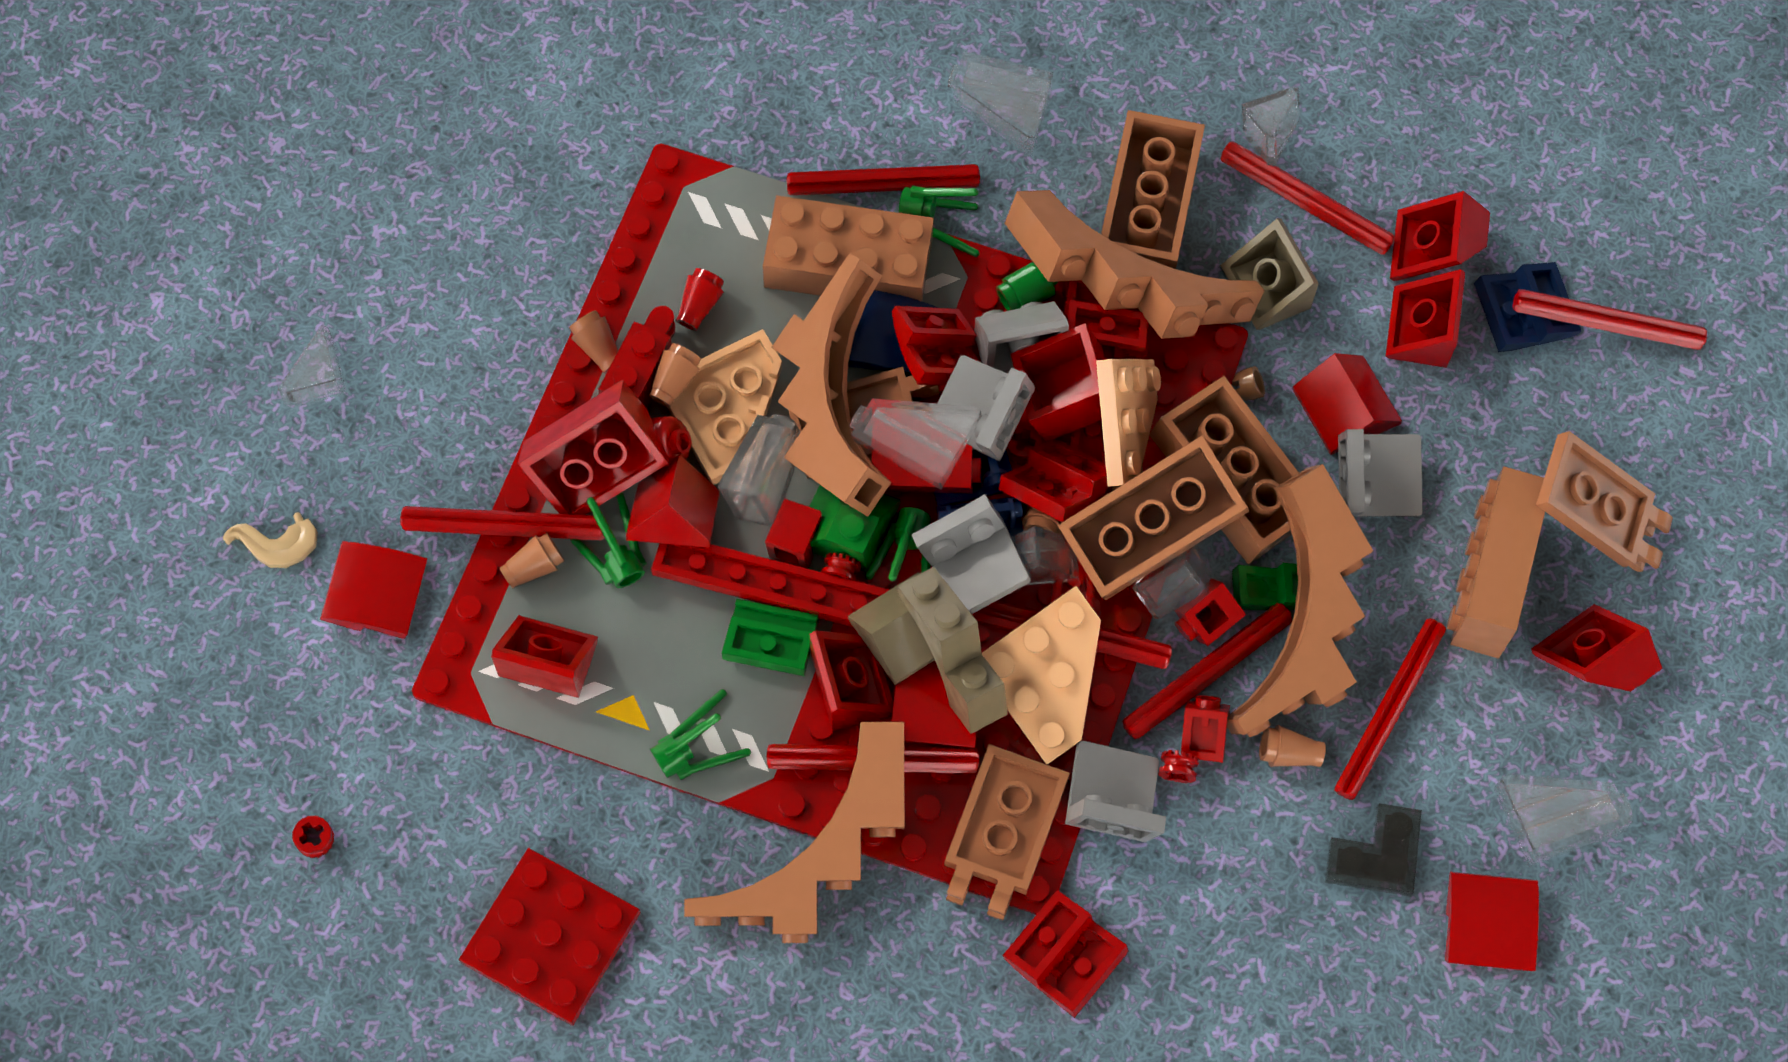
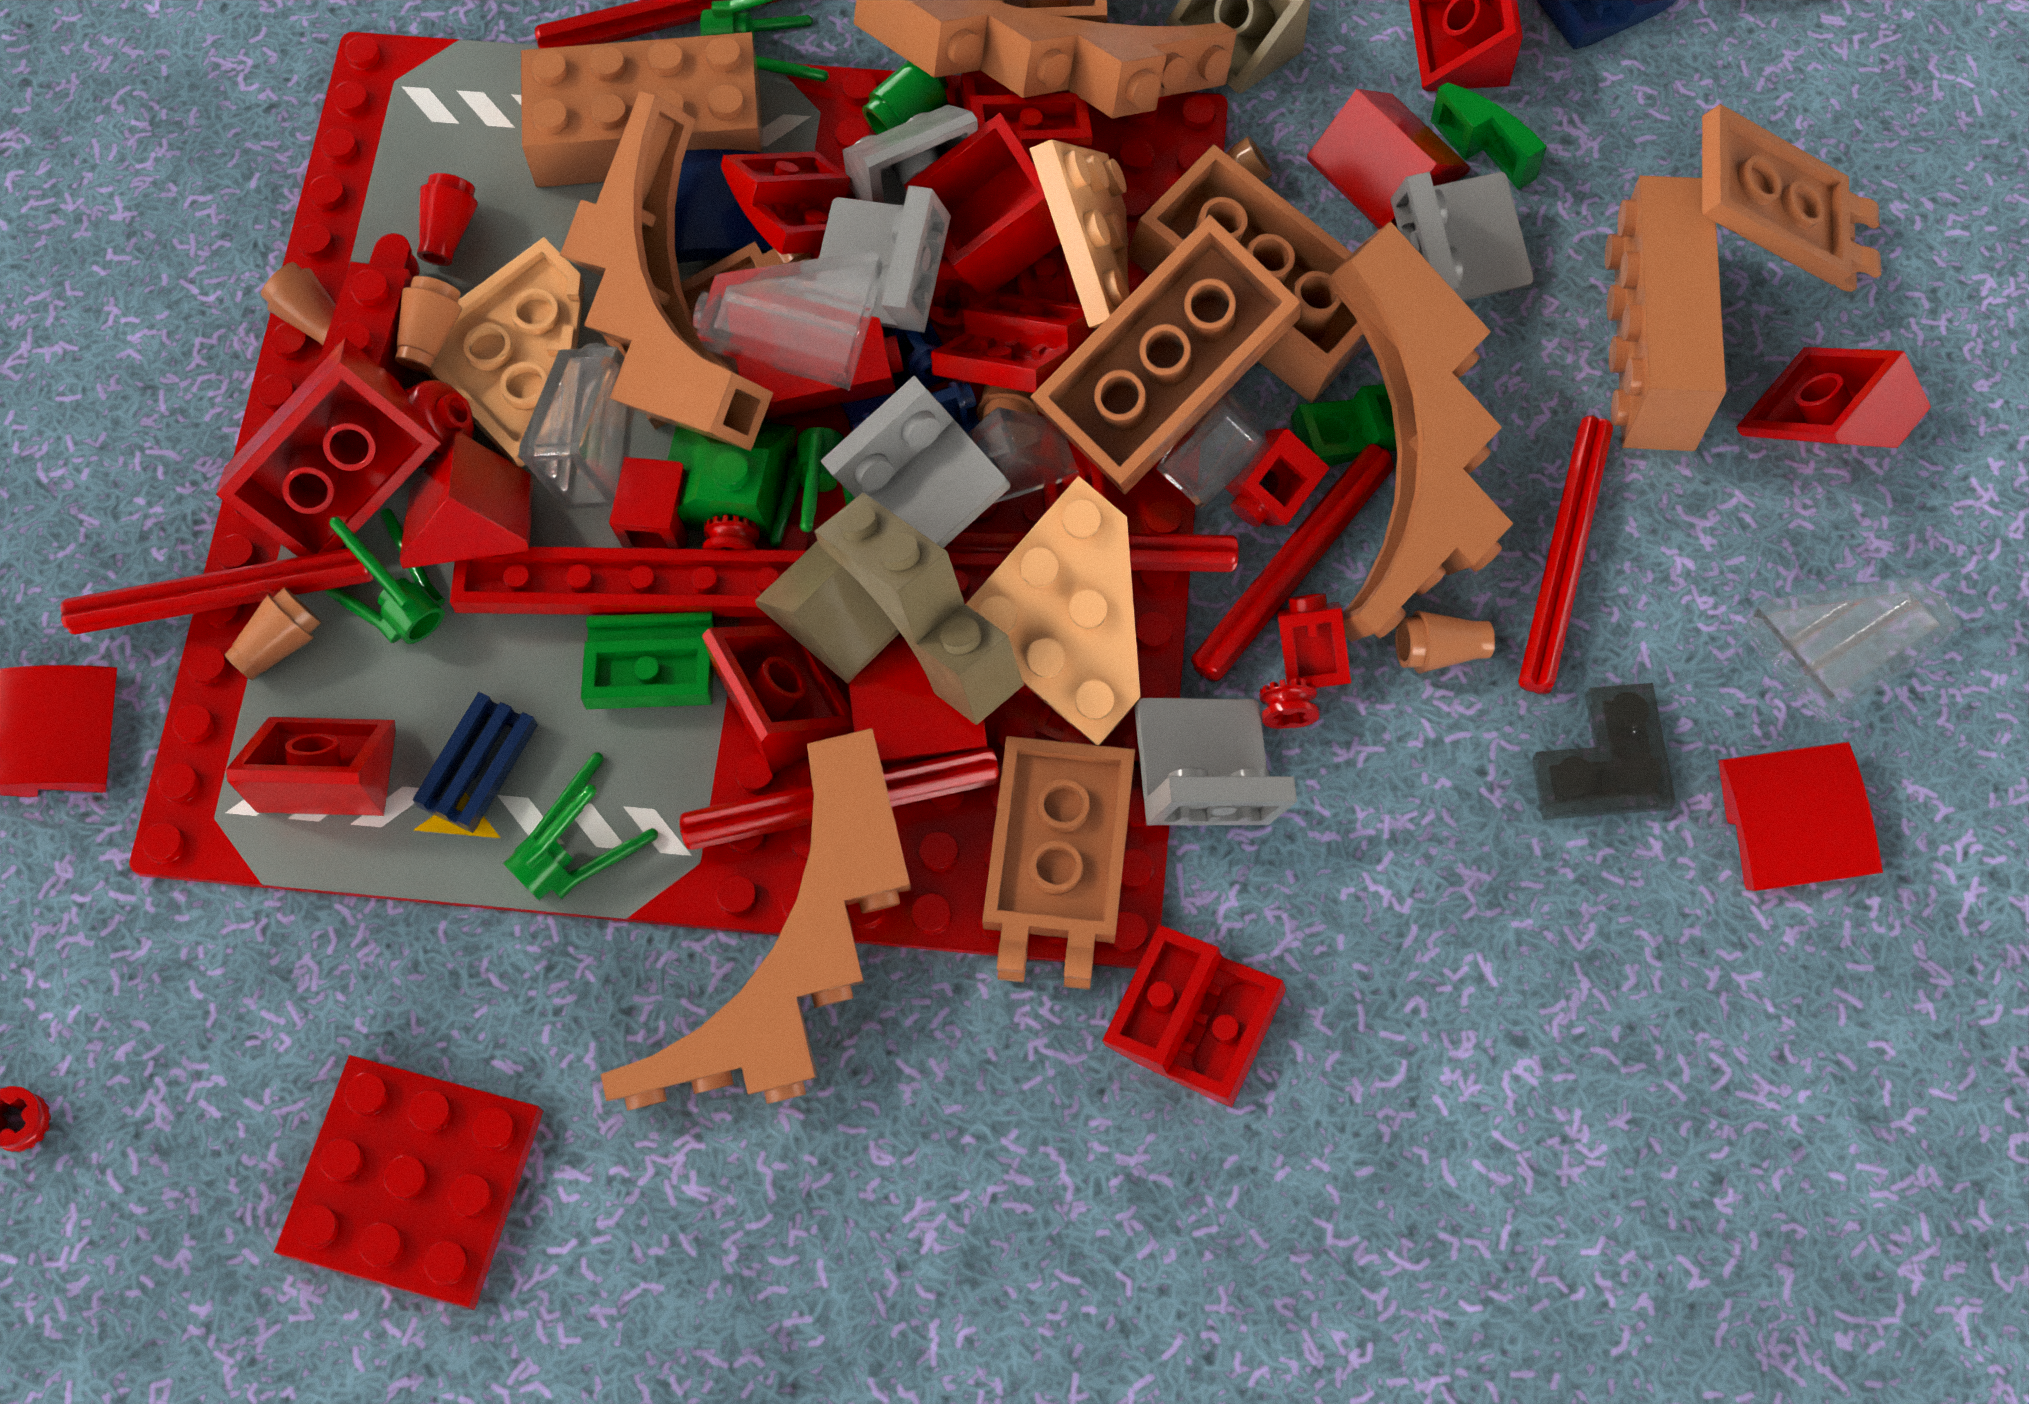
camera: 10 degrees left, 0 degrees up
(668, 650) = (455, 750): none -> dark blue tile
(1414, 394) = (1478, 124): none -> green slope

